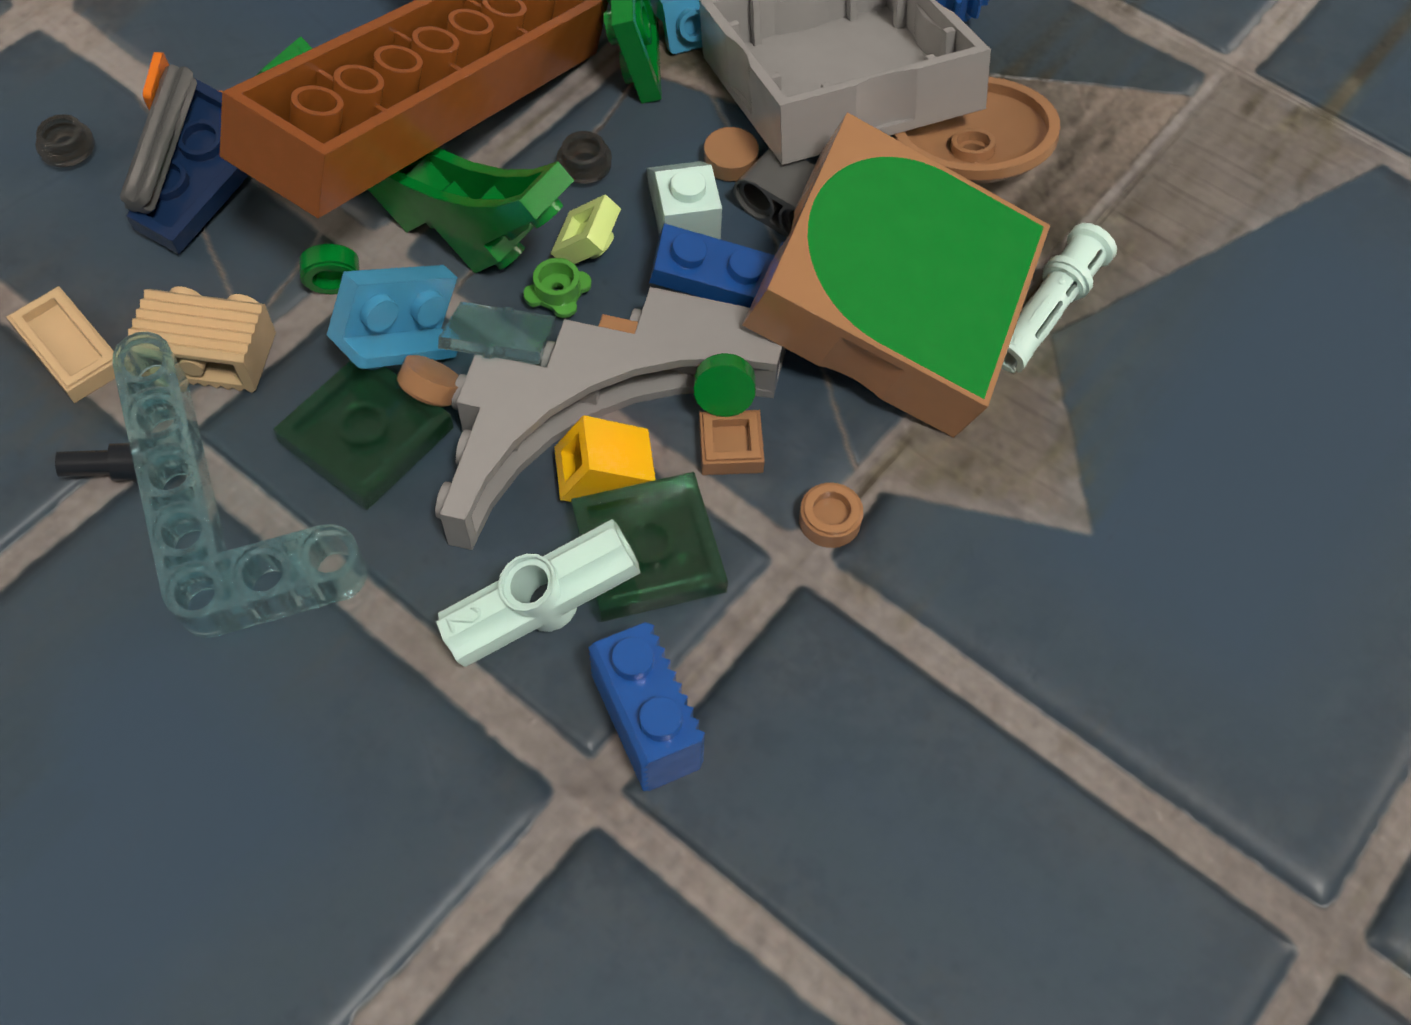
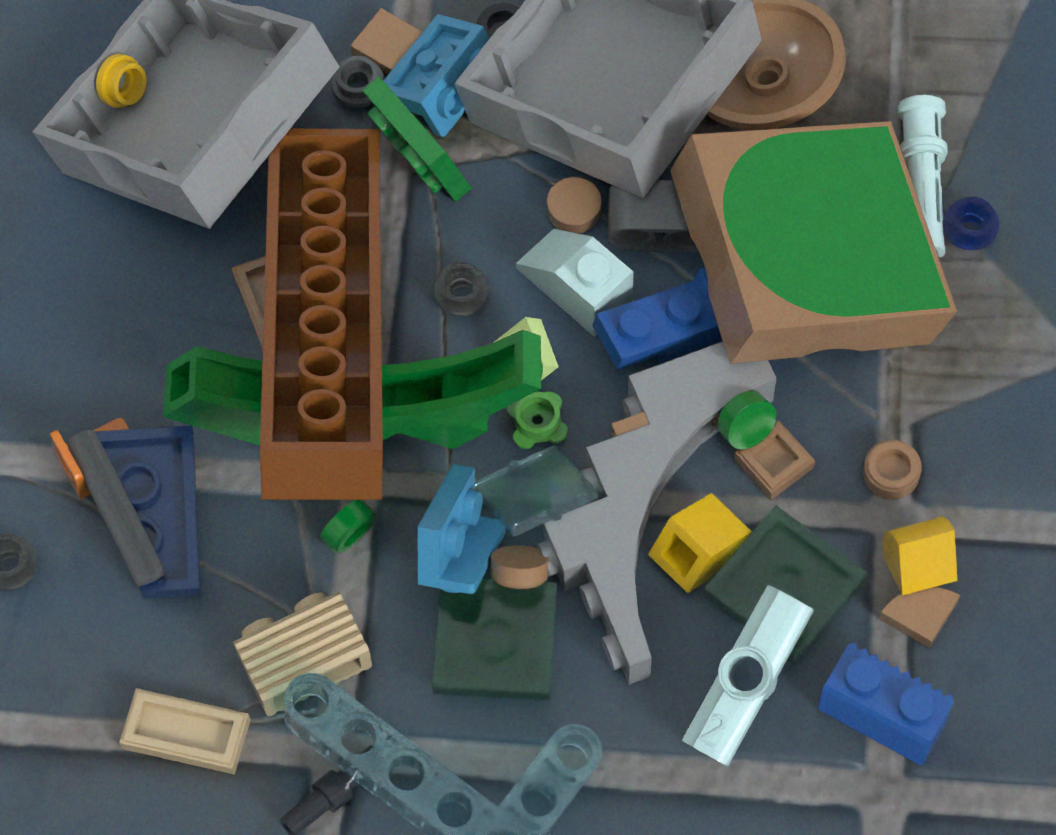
camera: 30 degrees left, 5 degrees up
(755, 652) = (920, 613): none -> medium nougat tile
(789, 596) = (921, 555): none -> yellow brick
(1069, 347) = (976, 211): none -> clear blue plate

